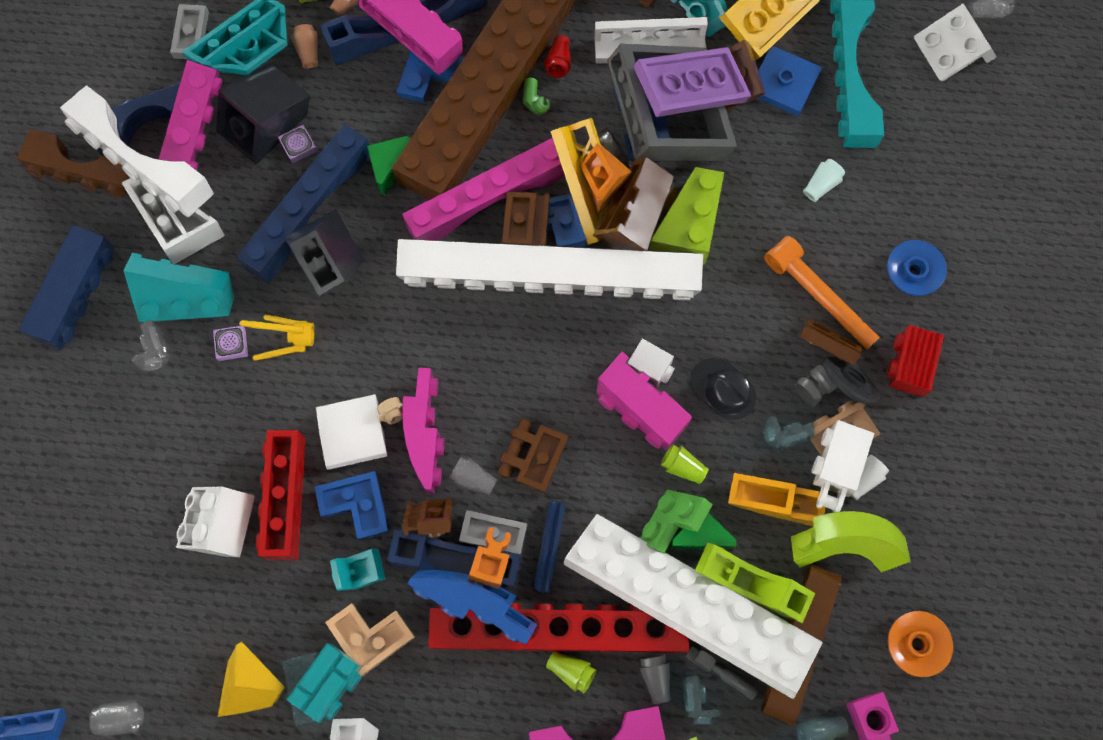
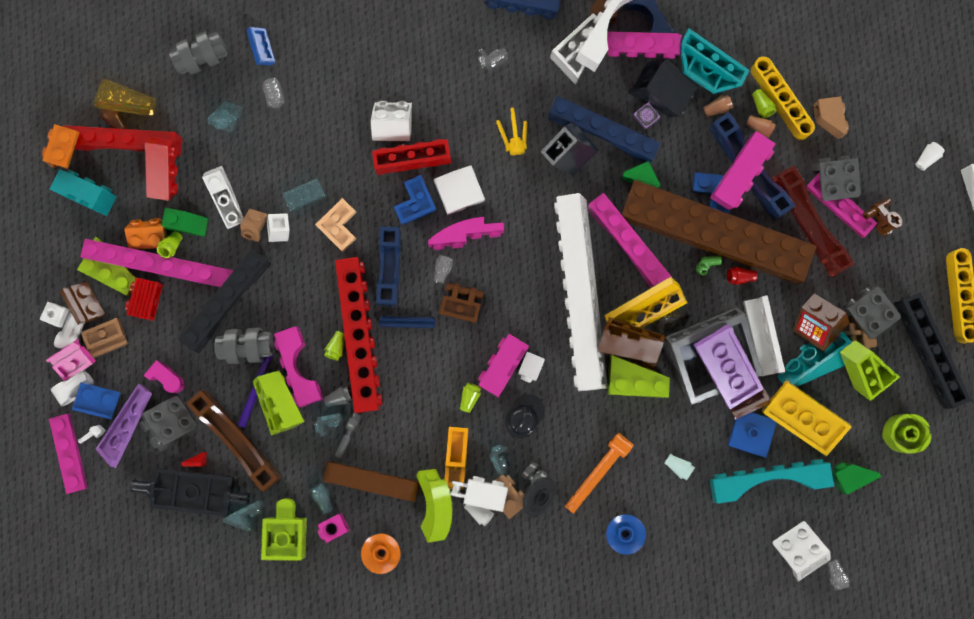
camera: 85 degrees right, 10 degrees up
(175, 291) = (528, 65): teal wedge -> none
(189, 28) = (715, 27): light grey plate -> none
(230, 343) = (504, 104): tile -> none
(247, 684) = (302, 161): yellow slope -> none
(325, 684) = (306, 205): teal brick -> none
(357, 570) = (375, 210): teal bracket -> none
(390, 411) = (474, 210): tan plate -> none
(429, 518) = (411, 246): reddish brown plate -> none
(459, 595) = (366, 274): blue slope -> none
(477, 524) = (410, 286): light grey plate -> none
(489, 562) = (385, 286): orange plate -> none
(526, 219) = (612, 272): reddish brown plate -> none
(565, 222) = (622, 290): blue plate -> none
(604, 175) = (648, 316): orange slope -> none
(674, 511) = (437, 393): bright green plate -> none
(694, 605) = (382, 411): white plate -> none
(709, 532) = (427, 413): green slope -> none
(758, 586) = (401, 447): lime arch -> none
(831, 341) = (564, 481): reddish brown plate -> none
(915, 360) = (561, 538): red brick -> none

